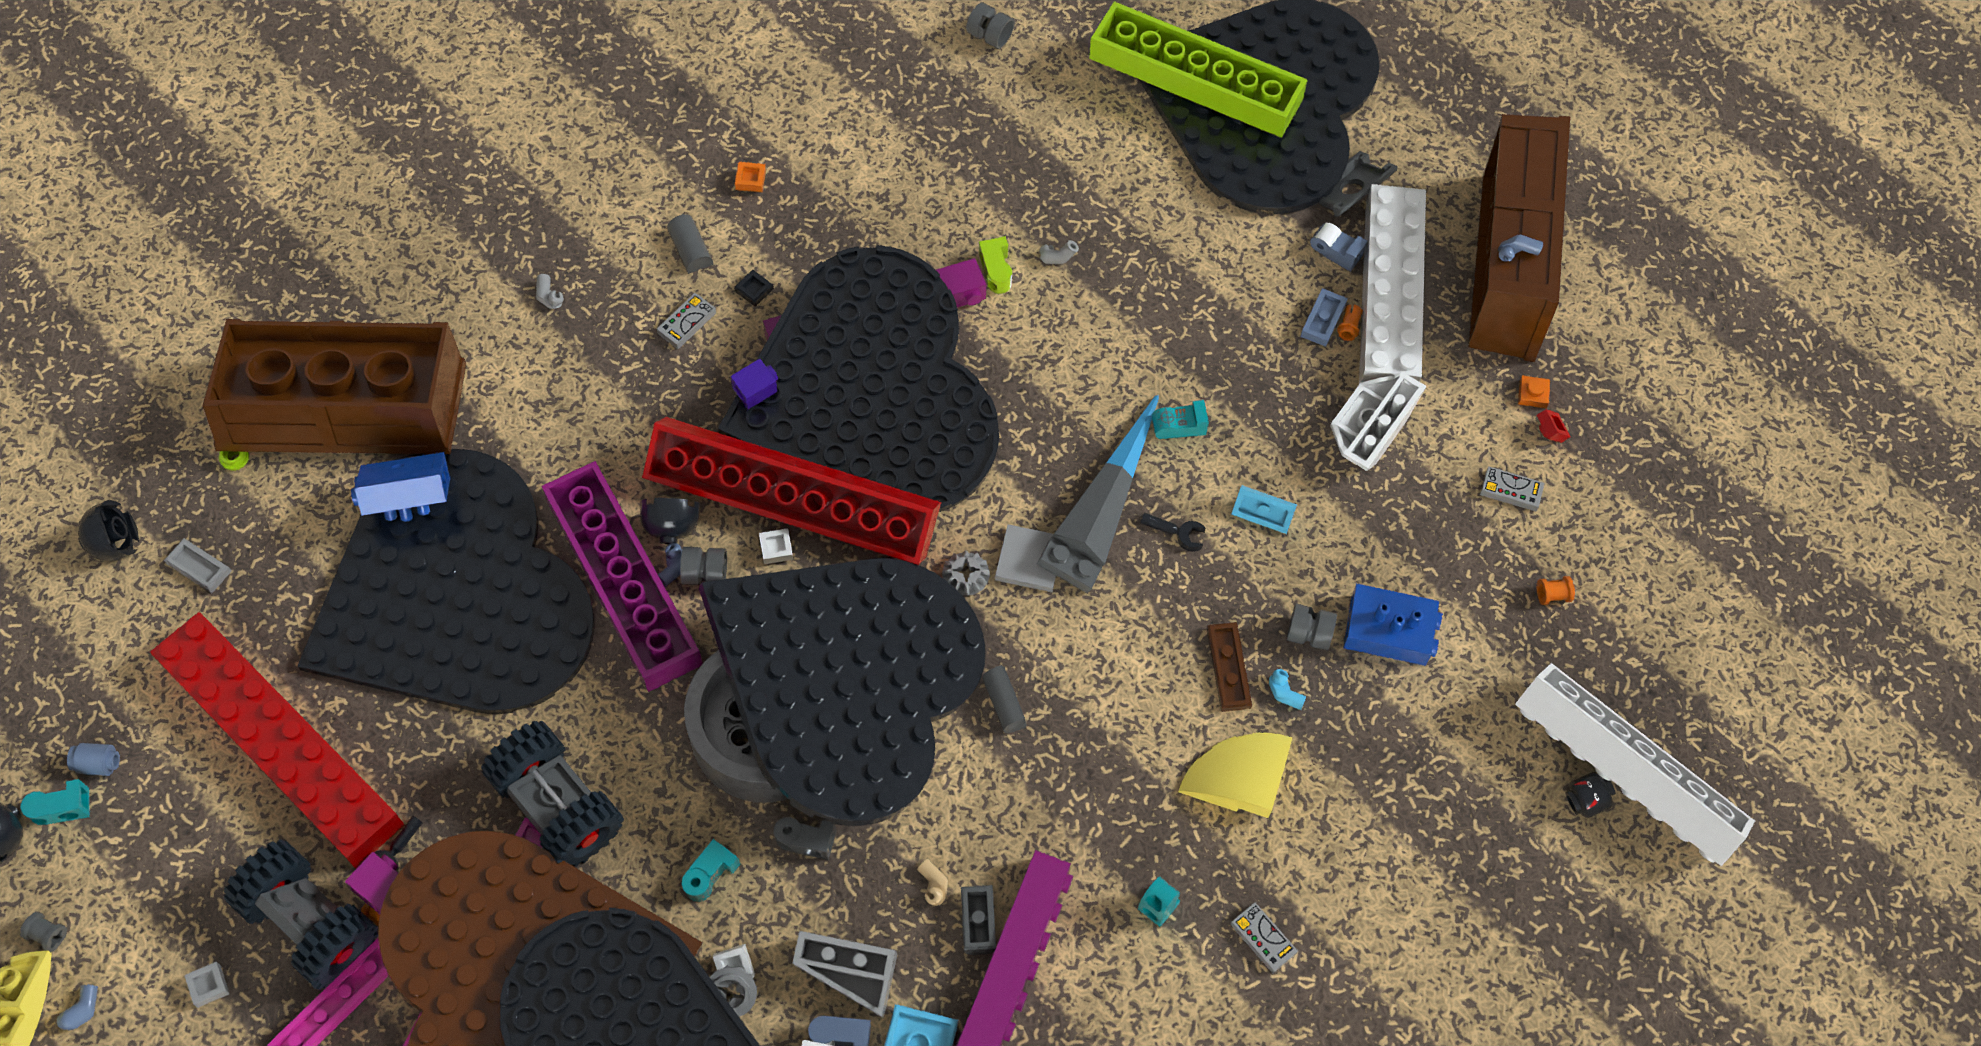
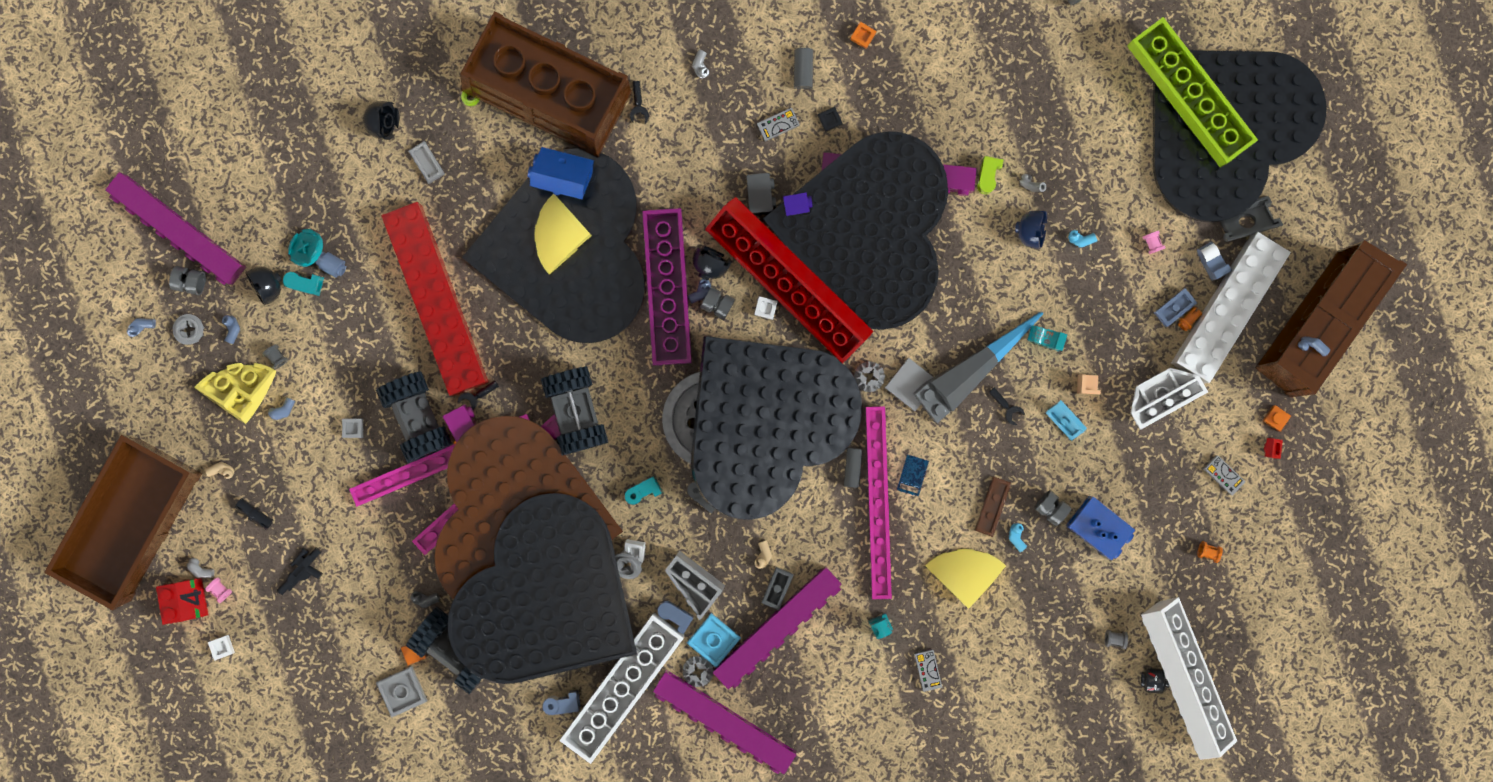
camera: 25 degrees right, 25 degrees up
(44, 752) = (305, 248): none -> teal tile
(431, 570) = (557, 234): none -> light yellow brick
(484, 377) = (638, 101): none -> black piece
(698, 403) = (759, 193): none -> dark grey brick
(1067, 736) = (878, 503): none -> dark pink plate
(1086, 300) = (1032, 229): none -> dark blue cylinder
(1094, 674) = (913, 474): none -> piece
(1157, 293) = (1081, 241): none -> medium azure arm
(1251, 255) = (1154, 242): none -> bright pink bush
(1267, 455) = (1087, 384): none -> light nougat panel
(1503, 764) = (1116, 639): none -> flat silver bush

